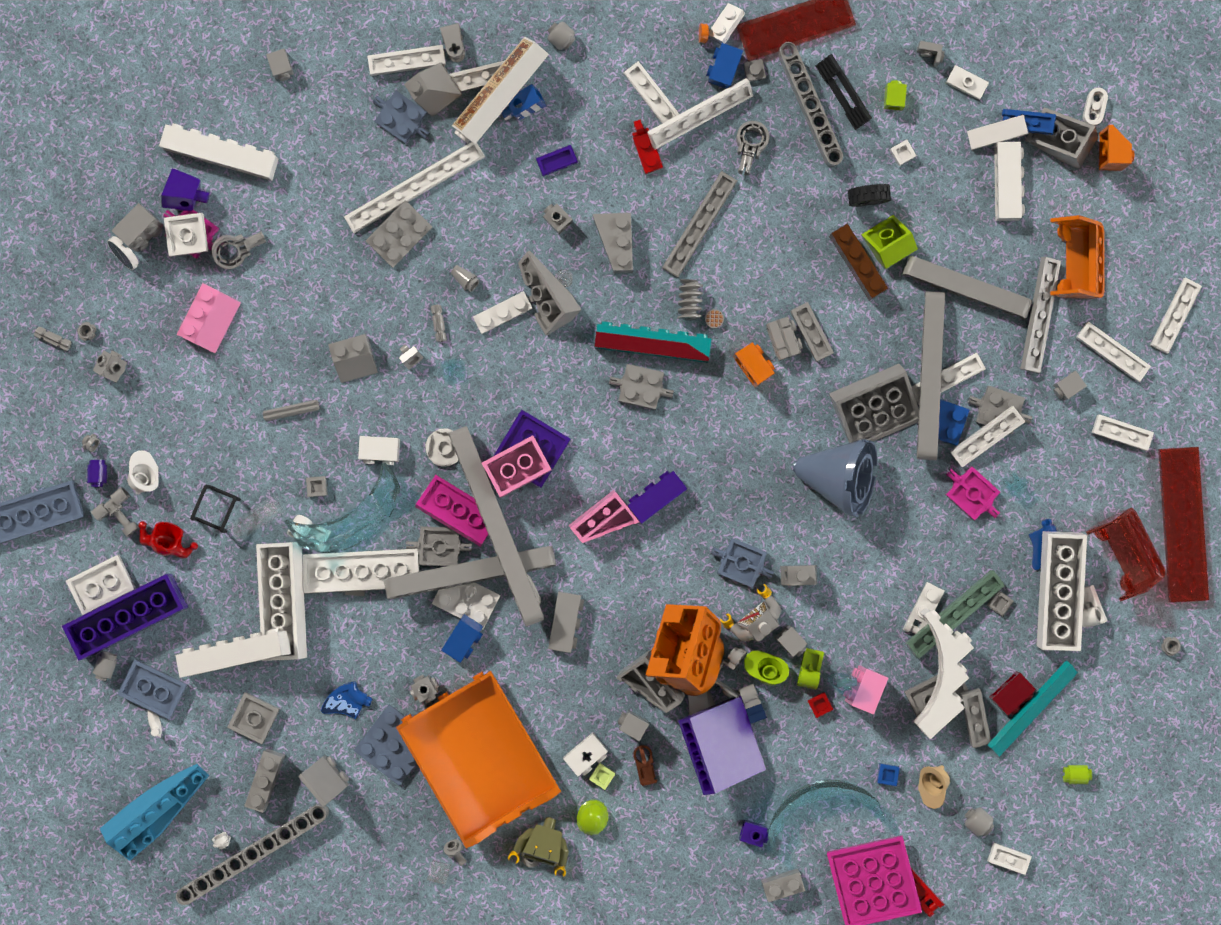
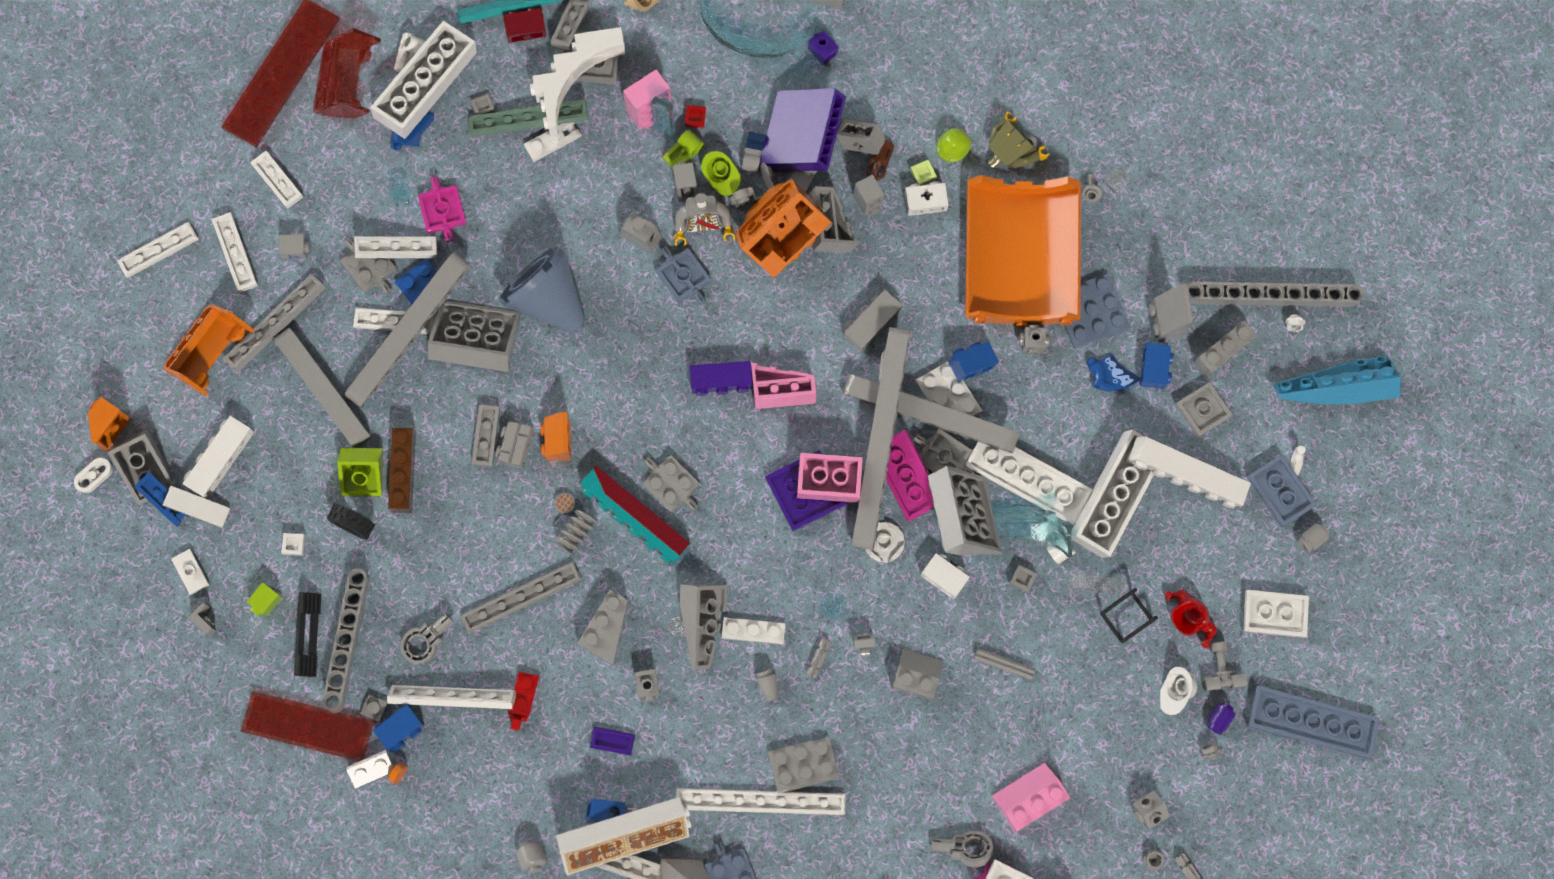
camera: 150 degrees left, 10 degrees down
(125, 616) = (1269, 568): dark purple brick -> none
(313, 730) = (1156, 366): none -> blue brick
(391, 504) = (964, 512): none -> light grey slope
(650, 93) = (483, 746): white tile -> none
(671, 772) = (861, 136): none -> light grey brick
(888, 774) = (676, 26): blue plate -> none

